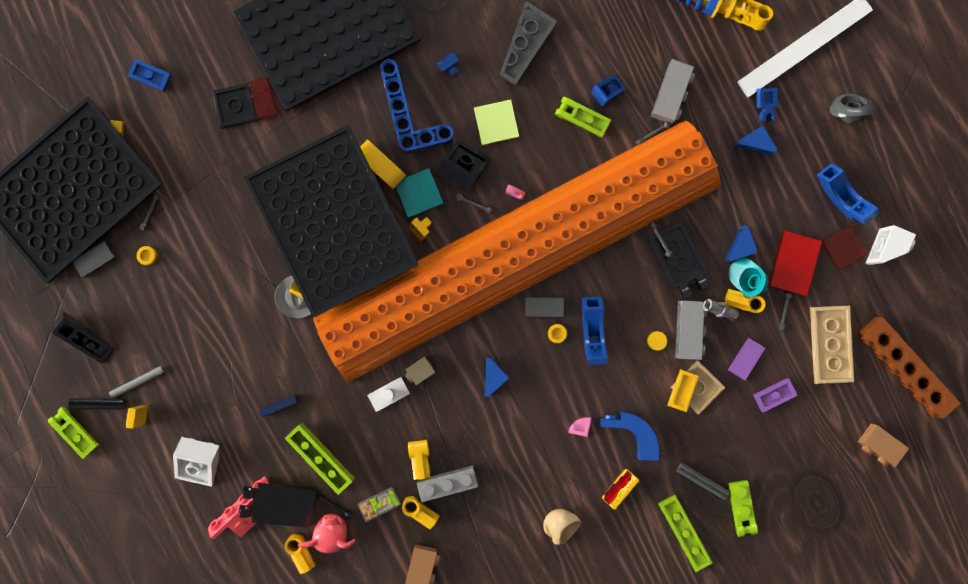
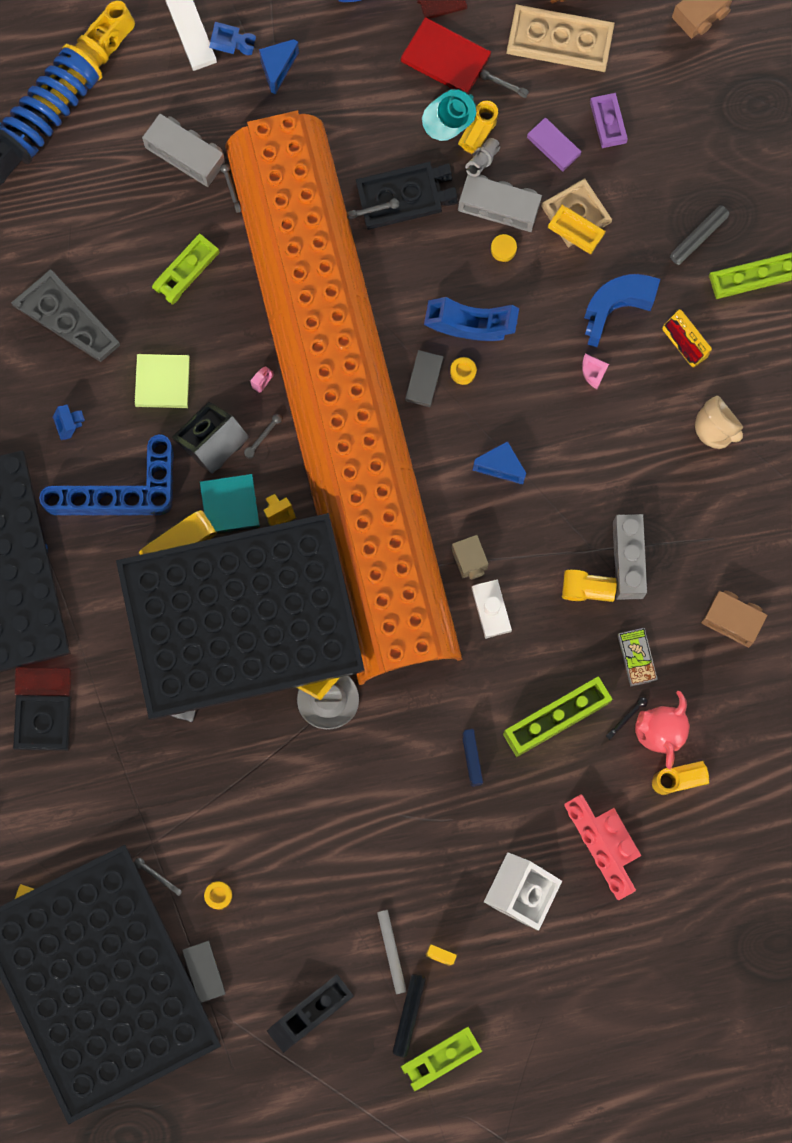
camera: 80 degrees left, 10 degrees down
(279, 504) = (608, 787): black tile -> none
(421, 513) = (660, 602): yellow piece -> none
(607, 90) = (160, 230): blue slope -> none
(742, 245) = (405, 112): blue slope -> none
(742, 507) = (745, 195): lime plate -> none

